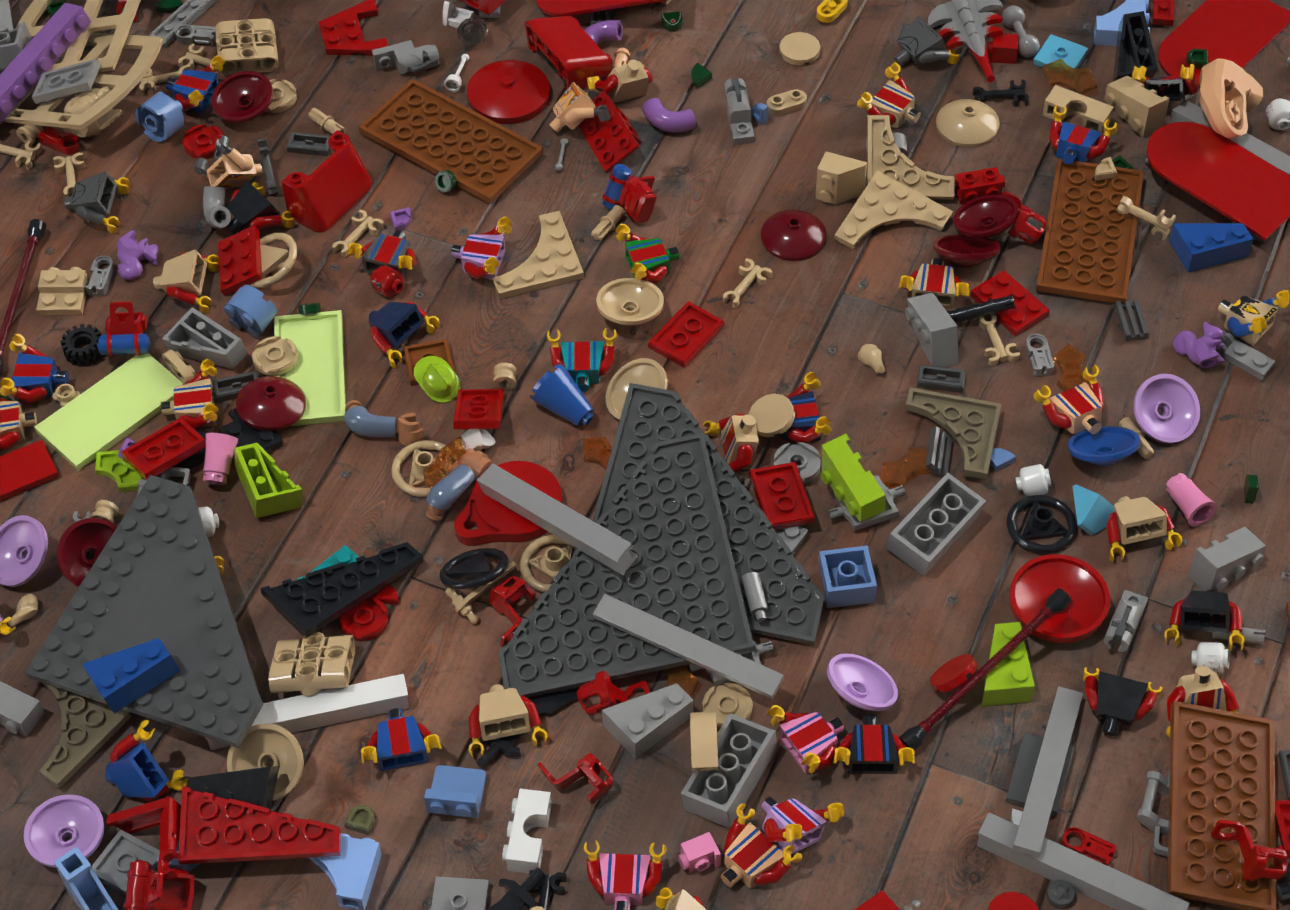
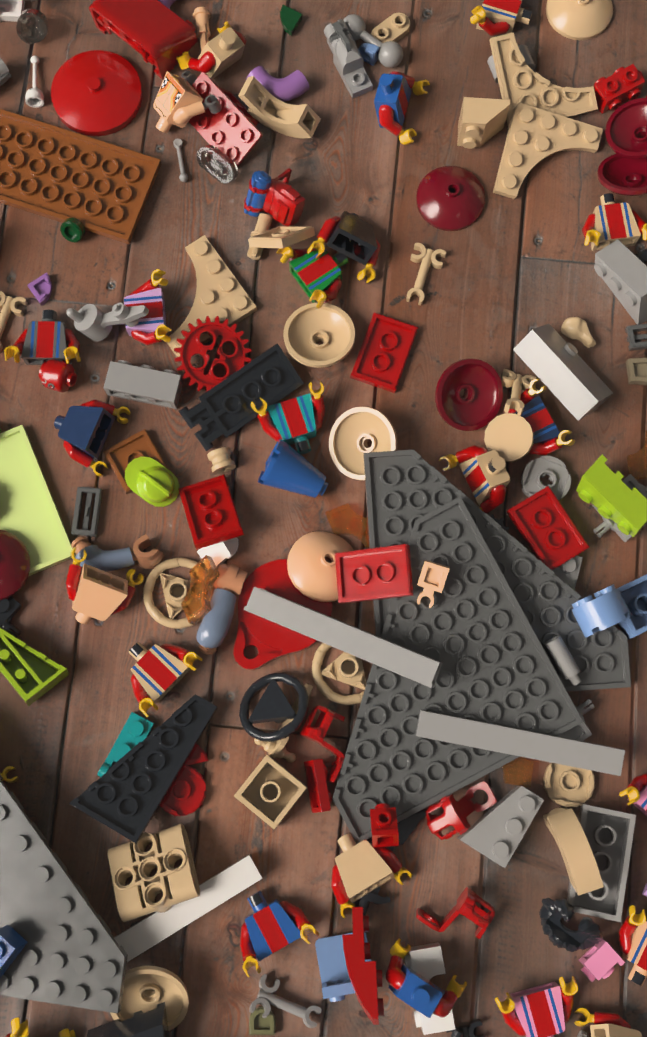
camera: 20 degrees left, 25 degrees up
(353, 441) = (98, 592): none -> light nougat torso
(369, 404) = (96, 514): none -> dark grey tile
(377, 797) = (266, 998): none -> light grey bar
(383, 518) = (158, 671): none -> torso
(438, 250) = (97, 324): none -> light grey piece
(444, 632) = (270, 791): none -> tan brick
(459, 305) = (143, 384): none -> light grey brick
(469, 775) = (362, 973): none -> red slope
(491, 635) = (316, 780): none -> red plate
(513, 285) = (192, 346): none -> red gear
(517, 812) = (416, 989): none -> torso
(525, 335) = (228, 403): none -> black hinge
(536, 673) = (384, 826): none -> red brick
(564, 476) = (308, 566): none -> light nougat dish
(591, 162) = (218, 165): none -> clear smoke plate
(603, 478) = (374, 574): none -> tile
(630, 220) = (281, 236): none -> tan tile
(652, 488) = (432, 579): none -> light nougat plate
(658, 138) = (287, 119): none -> tan arch
(668, 821) = (562, 937): none -> black piece
(687, 236) = (352, 238): none -> black torso
(757, 365) = (481, 394): none -> dark red dish
(767, 147) = (392, 102): none -> torso
(778, 115) = (389, 53): none -> light grey piece
(790, 382) = (518, 383): none -> tan bar
(800, 556) = (602, 612): none -> medium blue brick
(842, 377) = (563, 371): none -> brick

